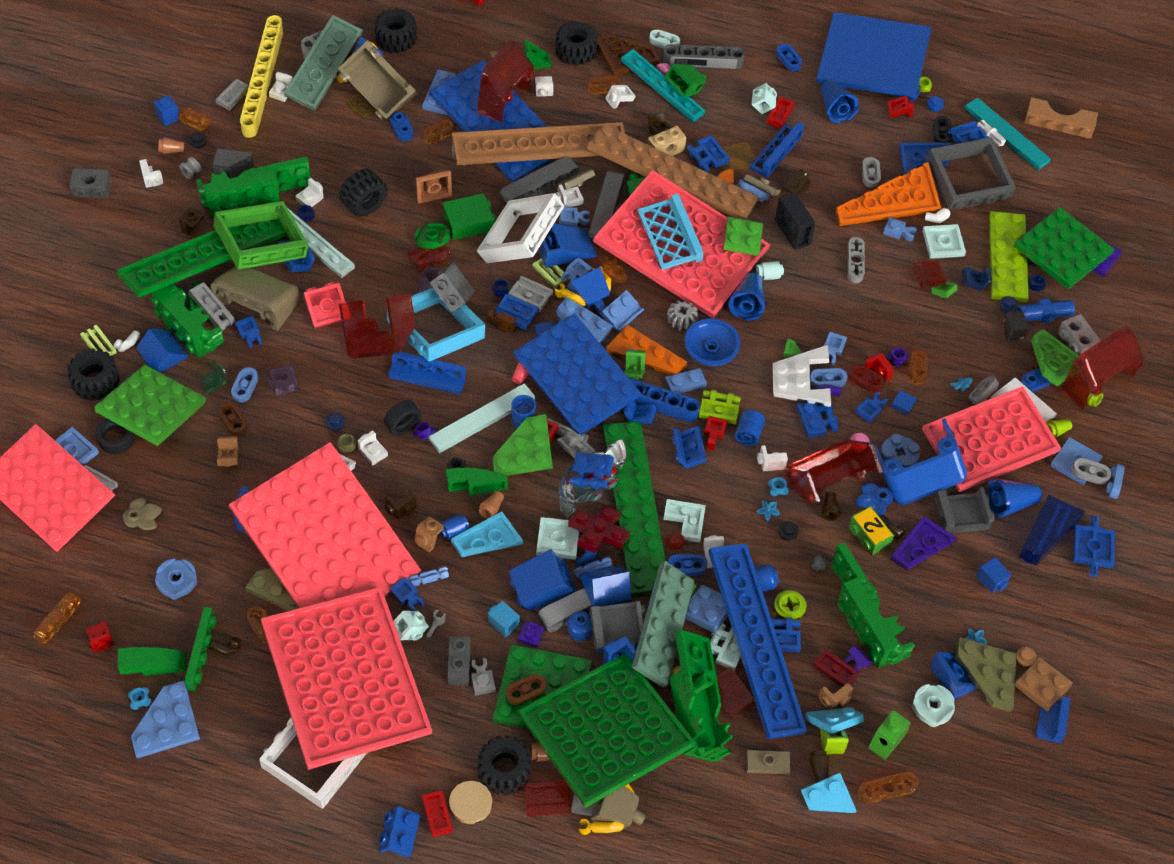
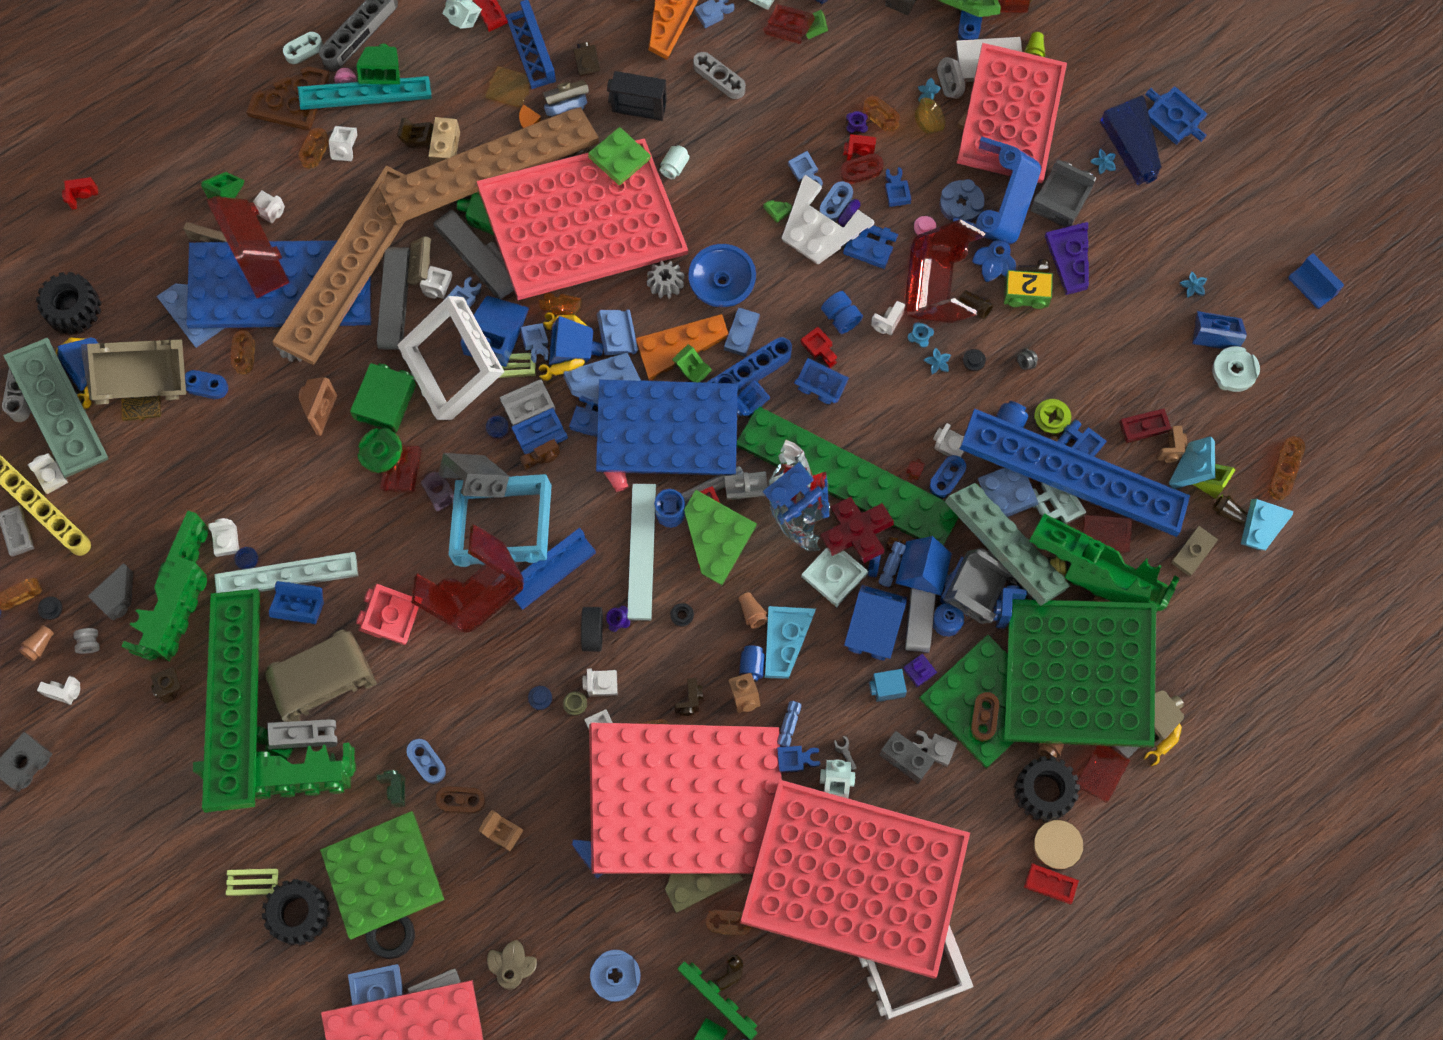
camera: 50 degrees left, 15 degrees up
(130, 341) = (278, 849): white arm -> none
(160, 350) = (313, 821): blue slope -> none
(248, 330) = (357, 713): blue plate -> none
(262, 255) = (217, 610): bright green window -> none
(283, 373) = (451, 708): clear purple brick -> none
(363, 192) = (275, 482): black tyre -> none
(399, 831) = (1046, 932): blue bracket -> none
(475, 480) = (713, 608): green slope -> none
(576, 43) = (239, 120): black tyre -> none
(683, 224) = (573, 201): medium azure fence -> none
(689, 514) = (897, 435): light aqua plate -> none
(712, 151) = (486, 107): blue plate -> none
(719, 409) = (799, 325): lime plate -> none
(748, 298) = (694, 203): blue cone -> none
(859, 657) = (1148, 396): dark purple tile -> none
(861, 605) = (1111, 355): green piece -> none
(892, 731) = (1243, 425): bright green torso -> none
(904, 402) = (910, 156): blue tile -> none
(942, 393) = (929, 116): none -> clear yellow helmet
(990, 670) = (1236, 297): olive plate -> none
(994, 575) = (1147, 220): blue brick -> none
(1011, 496) = (1082, 143): blue cone -> none
(1015, 523) = (1104, 162): none -> dark azure plant
(1026, 656) = (1241, 257): medium nougat plate -> none
(1043, 684) = (1277, 263): medium nougat plate -> none
(1069, 454) = (1081, 58): medium blue plate -> none
(1090, 470) = (1102, 58): light grey plate -> none
(1114, 486) = (1128, 47): medium blue plate -> none

